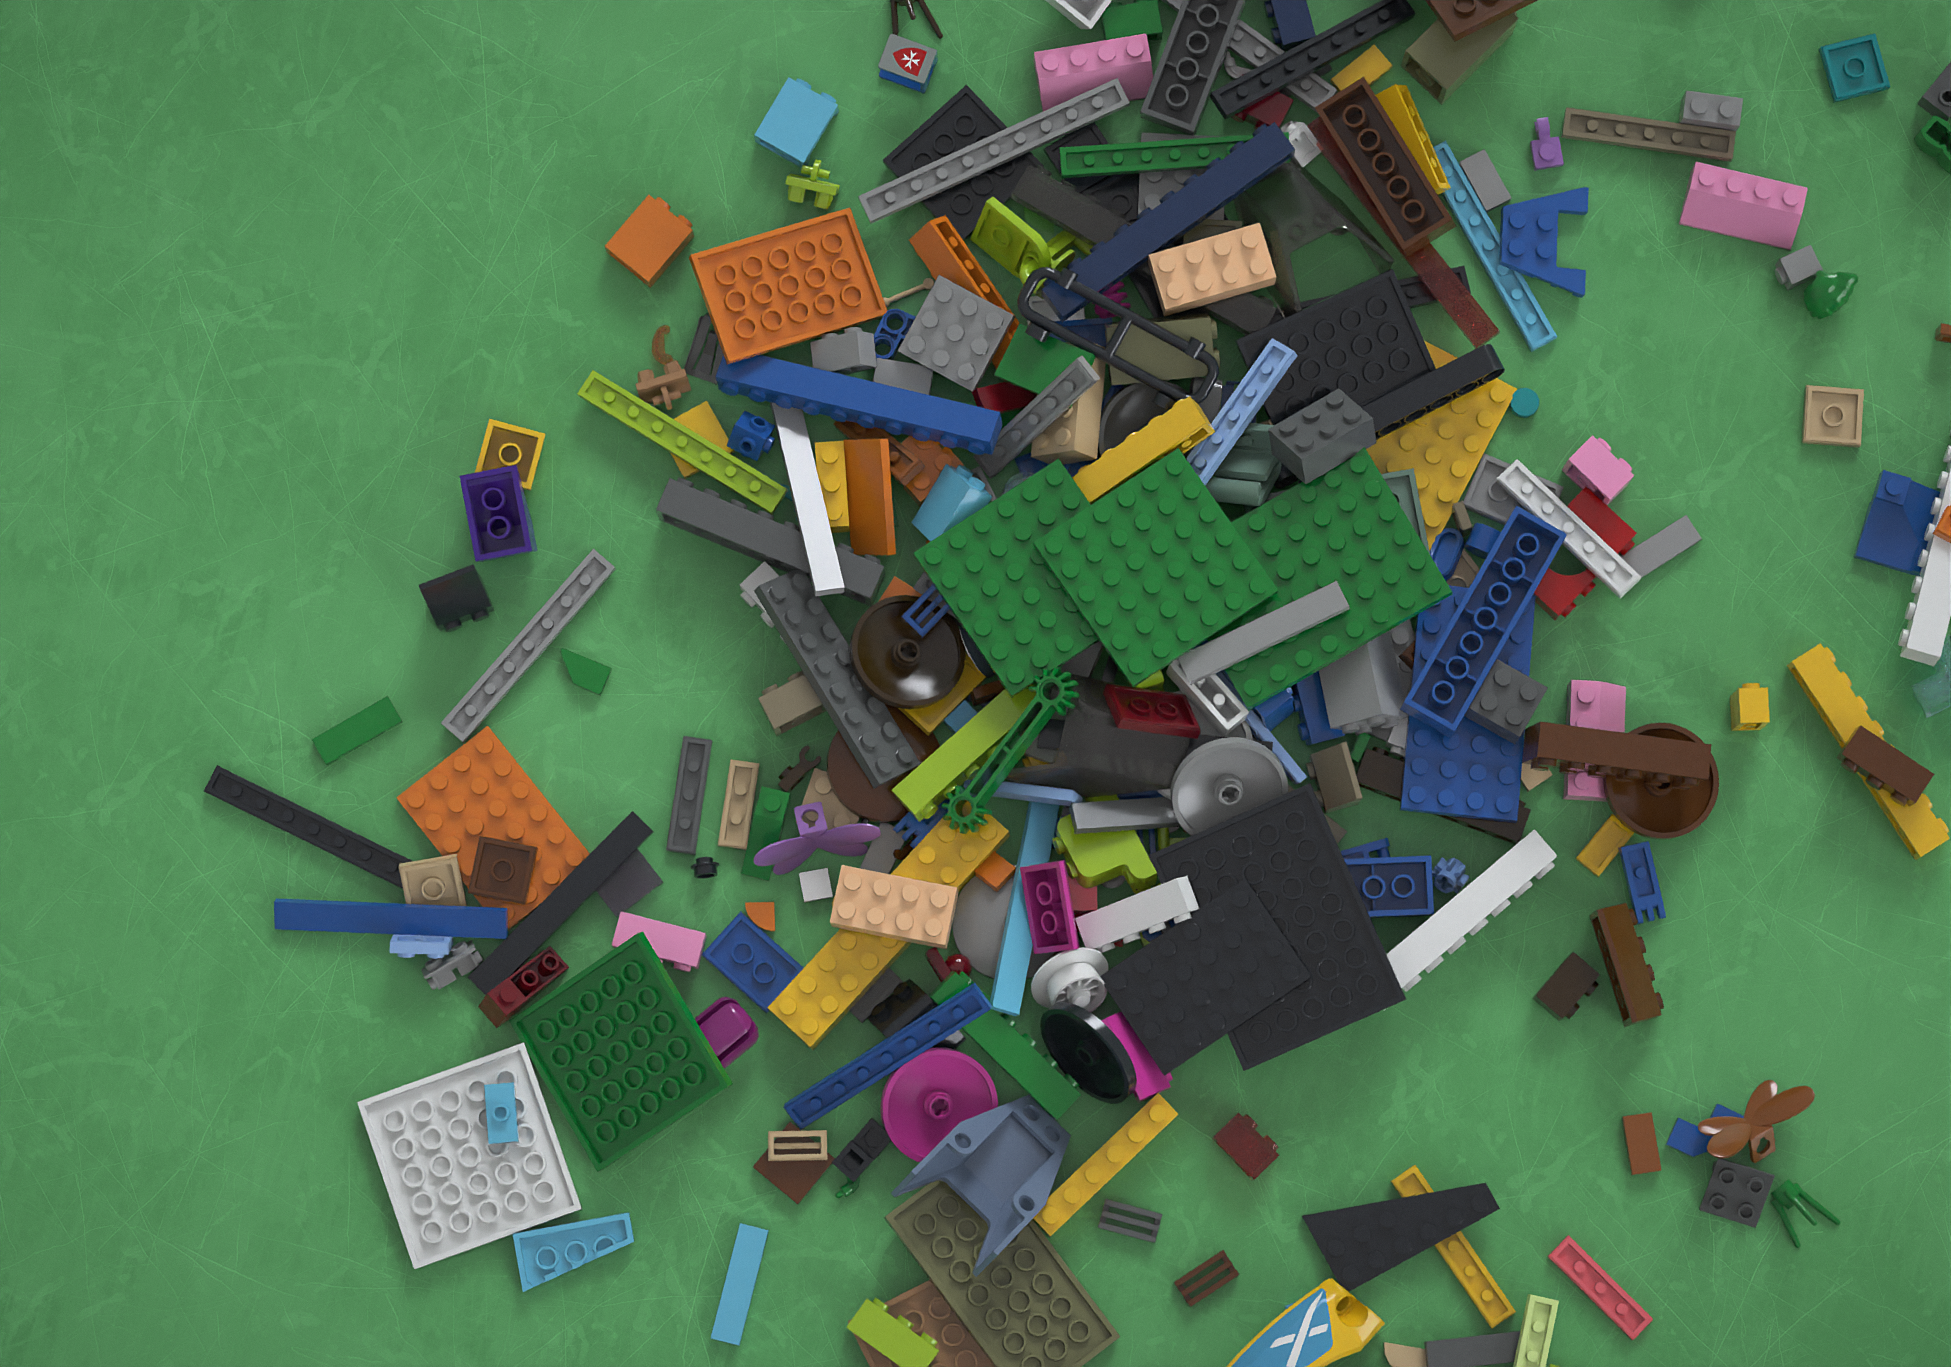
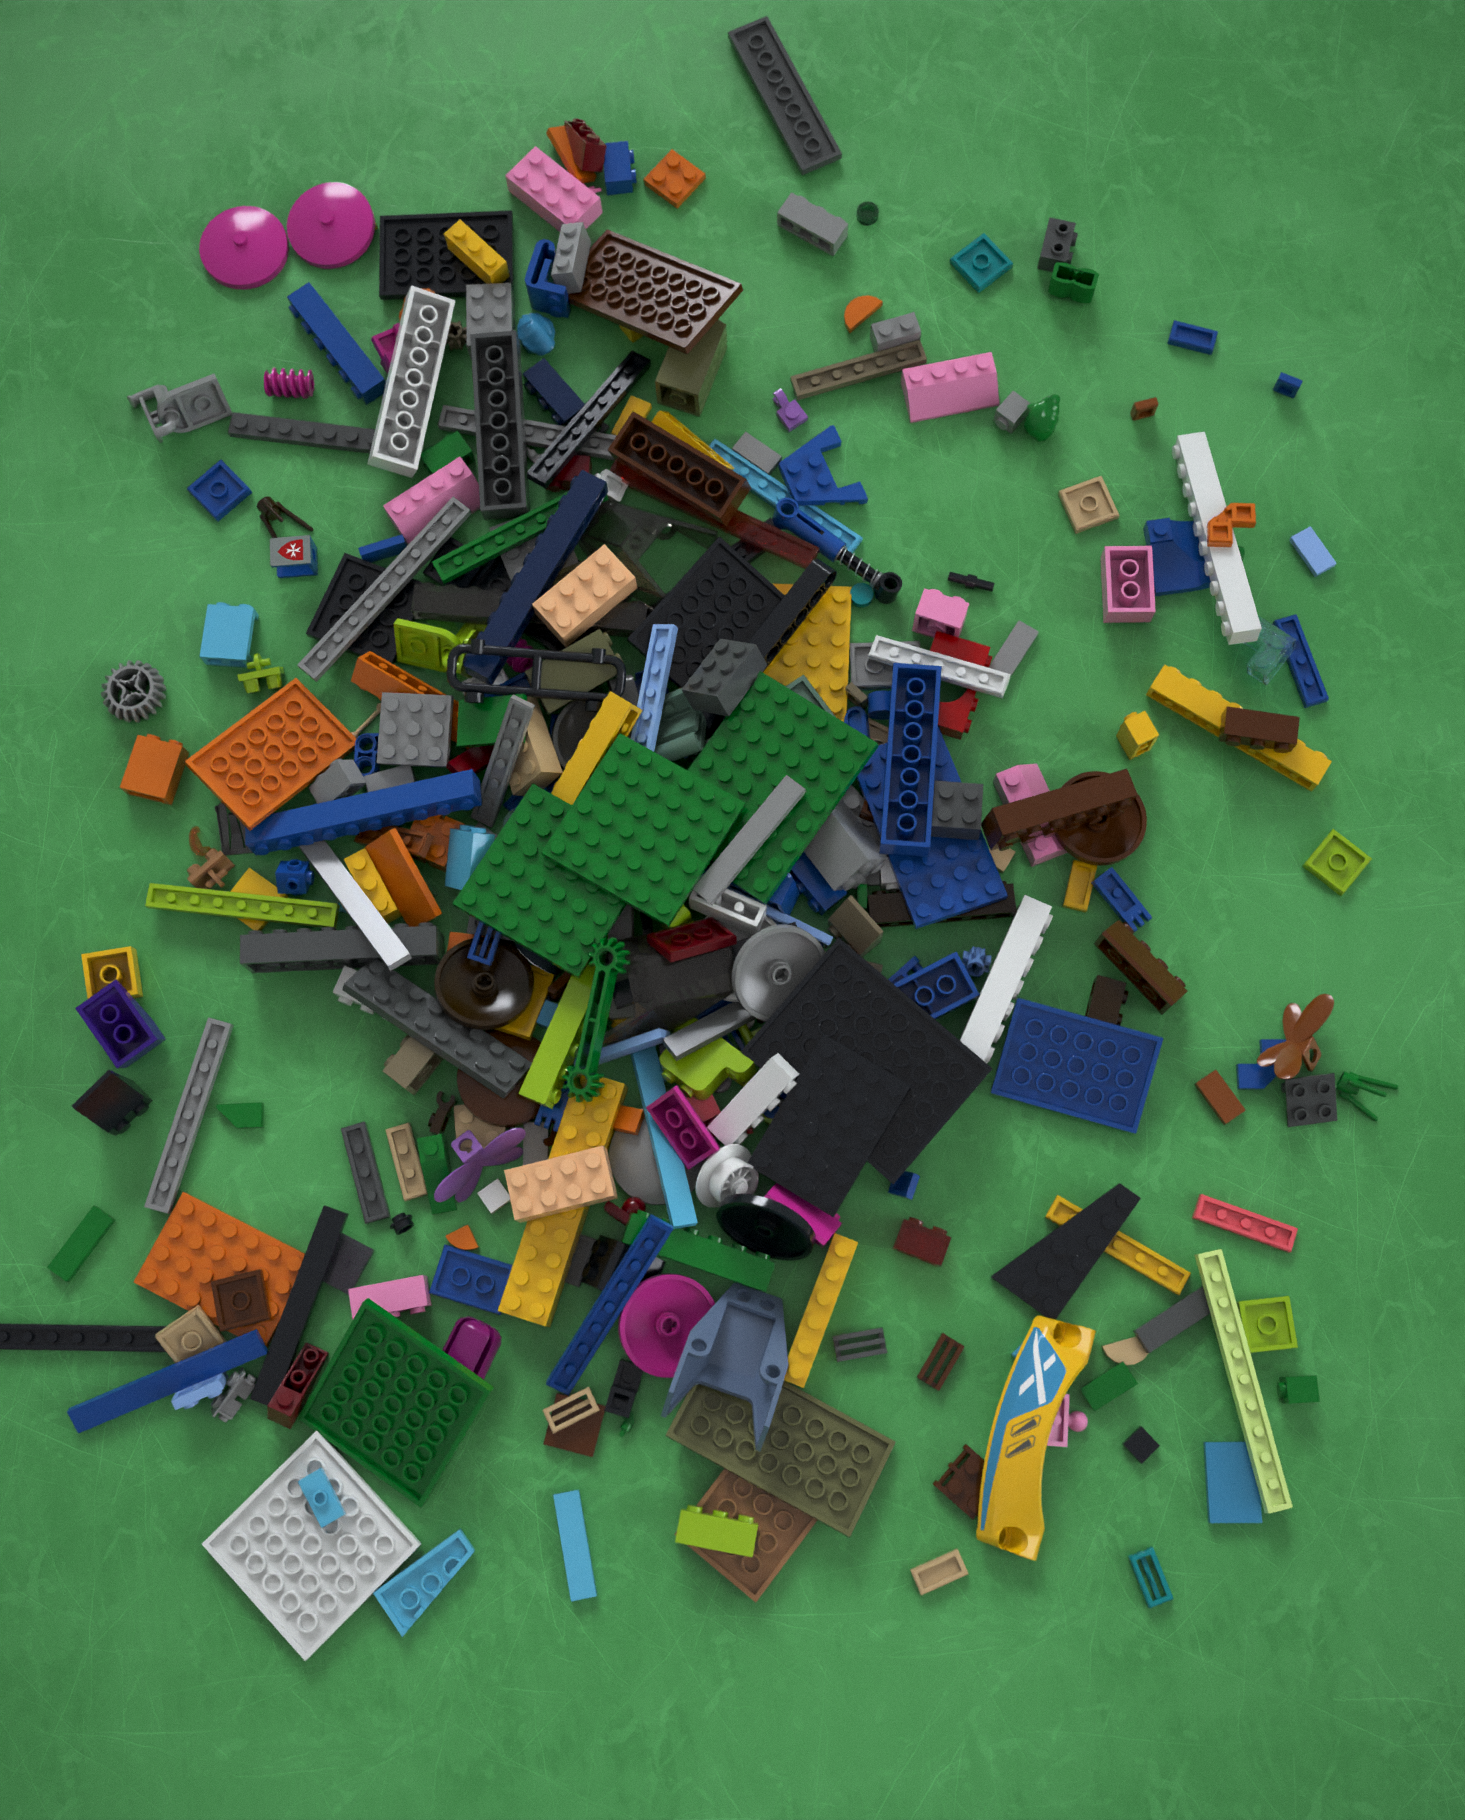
camera: 20 degrees left, 5 degrees down
(672, 130) = (139, 676): none -> light grey gear
(1012, 100) = (383, 549): none -> blue tile
(1257, 1078) = (905, 1185): none -> blue plate
(1502, 1037) = (1076, 1065): none -> blue plate
(1517, 337) = (834, 549): none -> piece
(1654, 445) = (971, 581): none -> black bar
(1685, 61) = (859, 310): none -> orange tile
(1827, 531) = (1127, 584): none -> bright pink brick
(1901, 951) = (1337, 862): none -> lime tile

